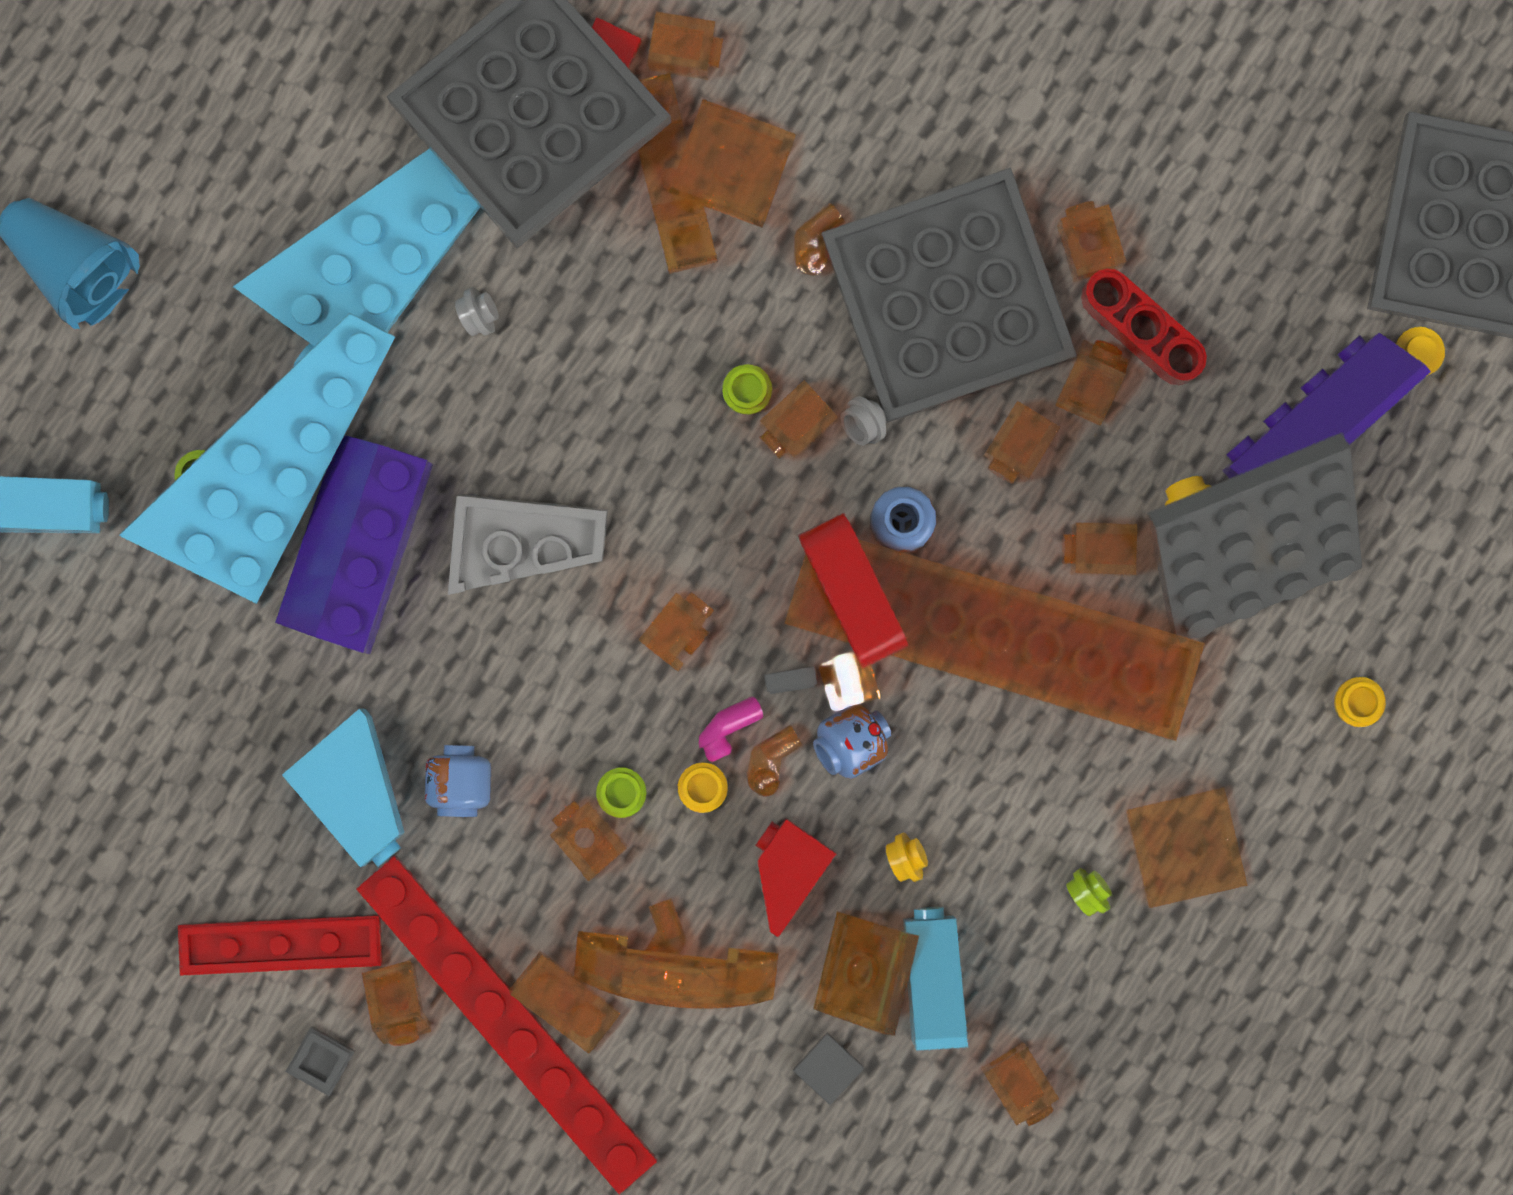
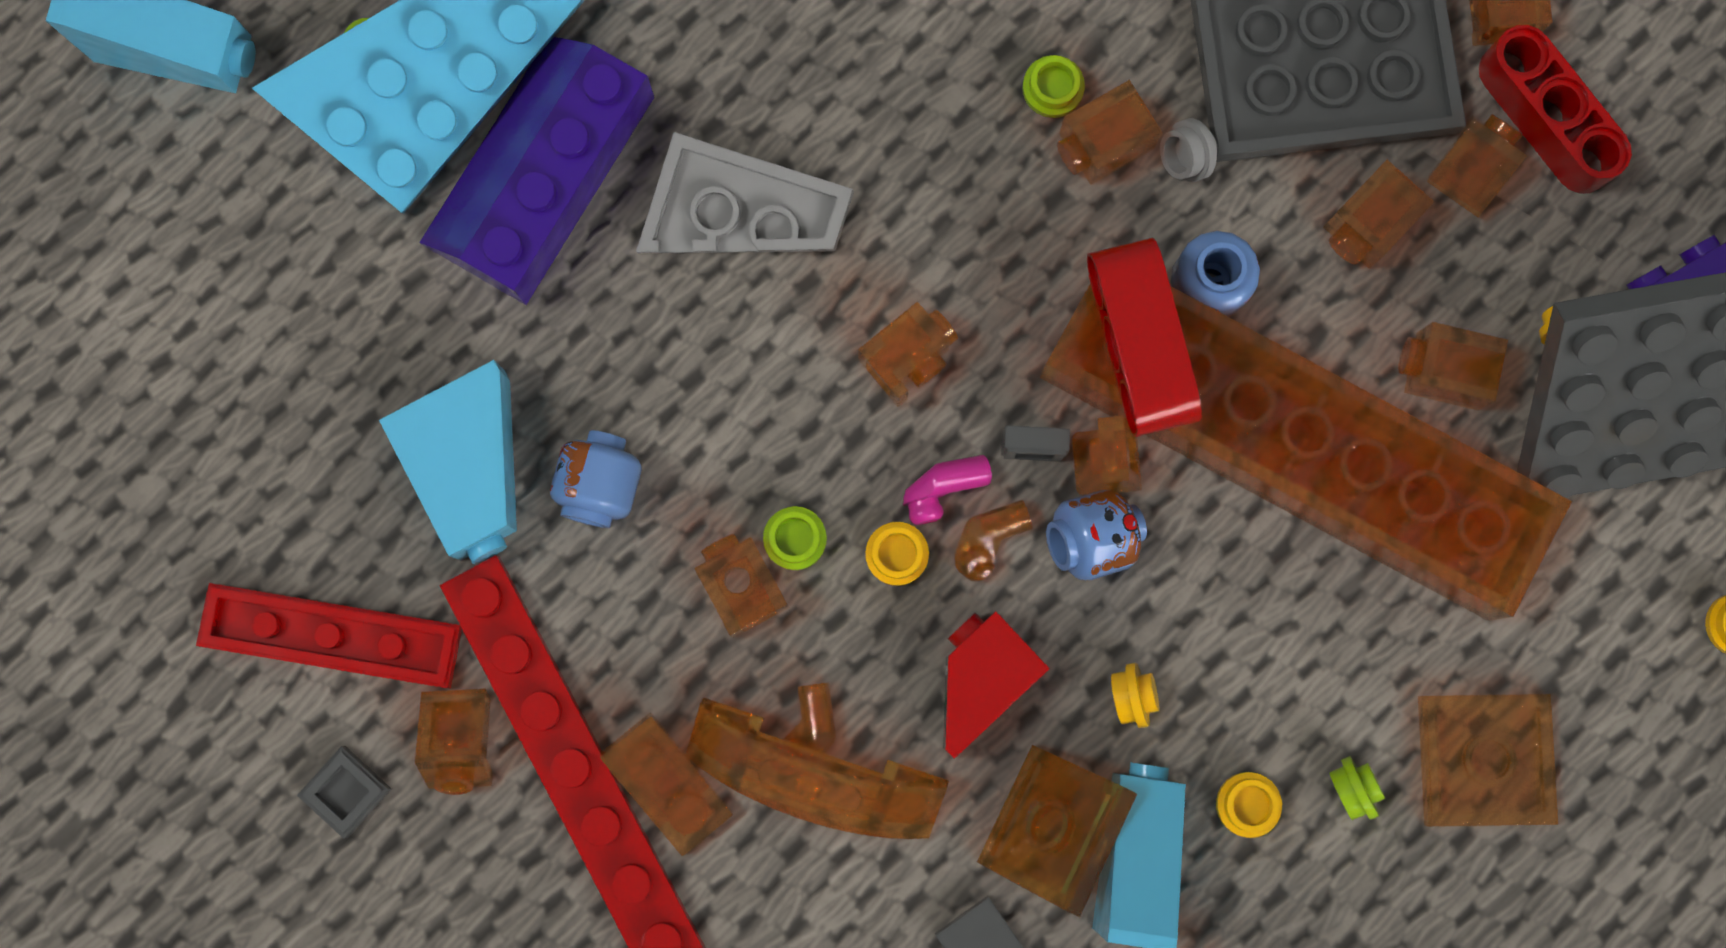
camera: 10 degrees right, 5 degrees down
(1011, 921) = (1249, 804): none -> yellow plate

